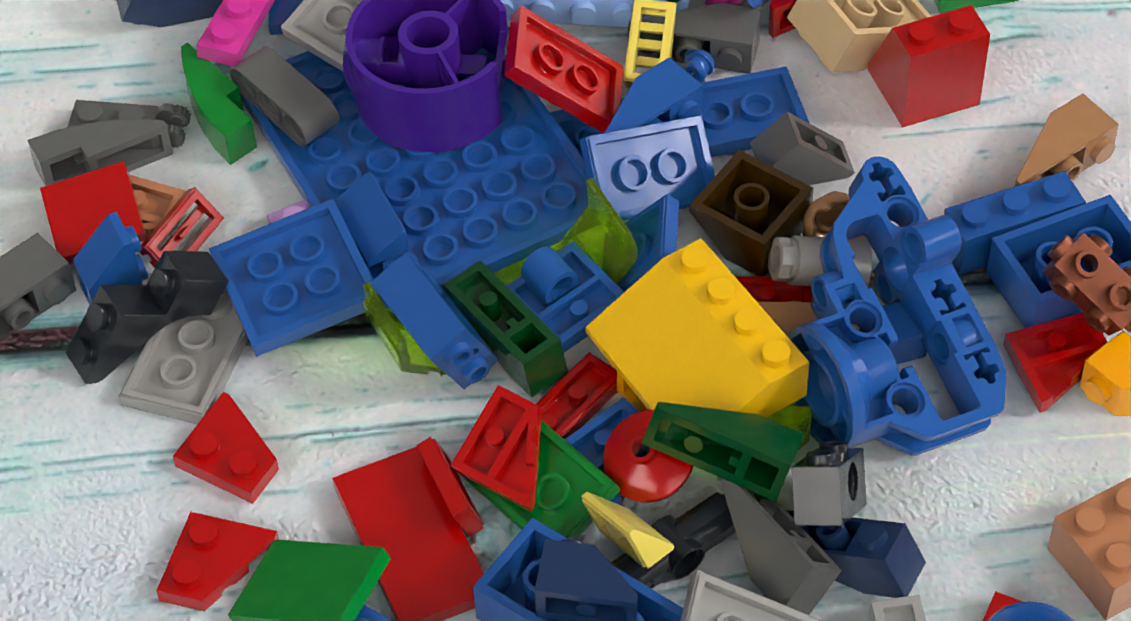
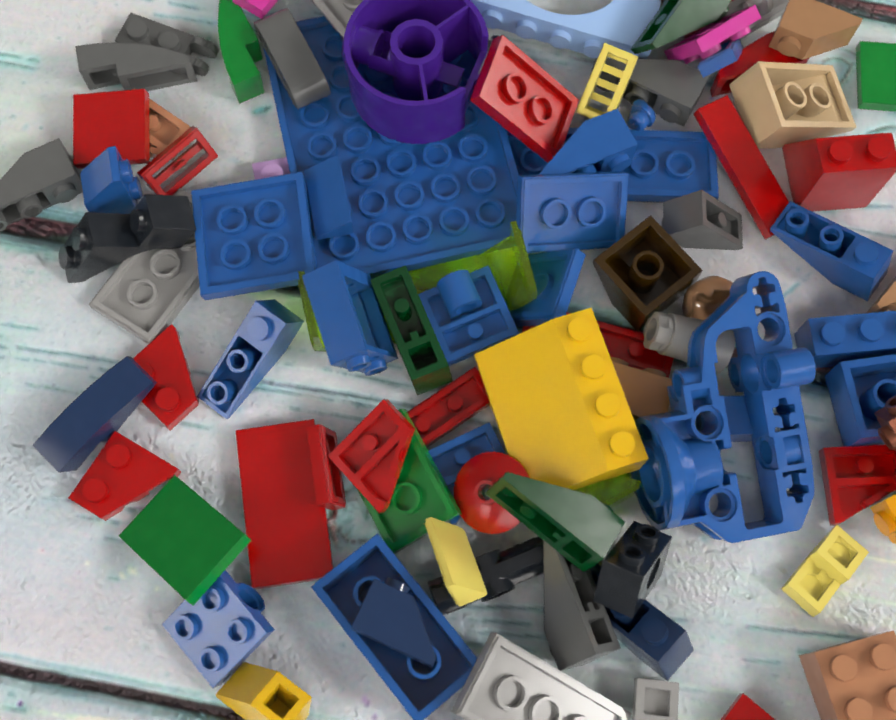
camera: 10 degrees right, 20 degrees up
(164, 497) = (94, 415): none -> dark blue slope
(325, 400) = (250, 355): none -> blue slope
(832, 90) = (742, 162): none -> red tile
(959, 147) = (833, 250): none -> blue slope
(1047, 456) = (824, 570): none -> light yellow slope

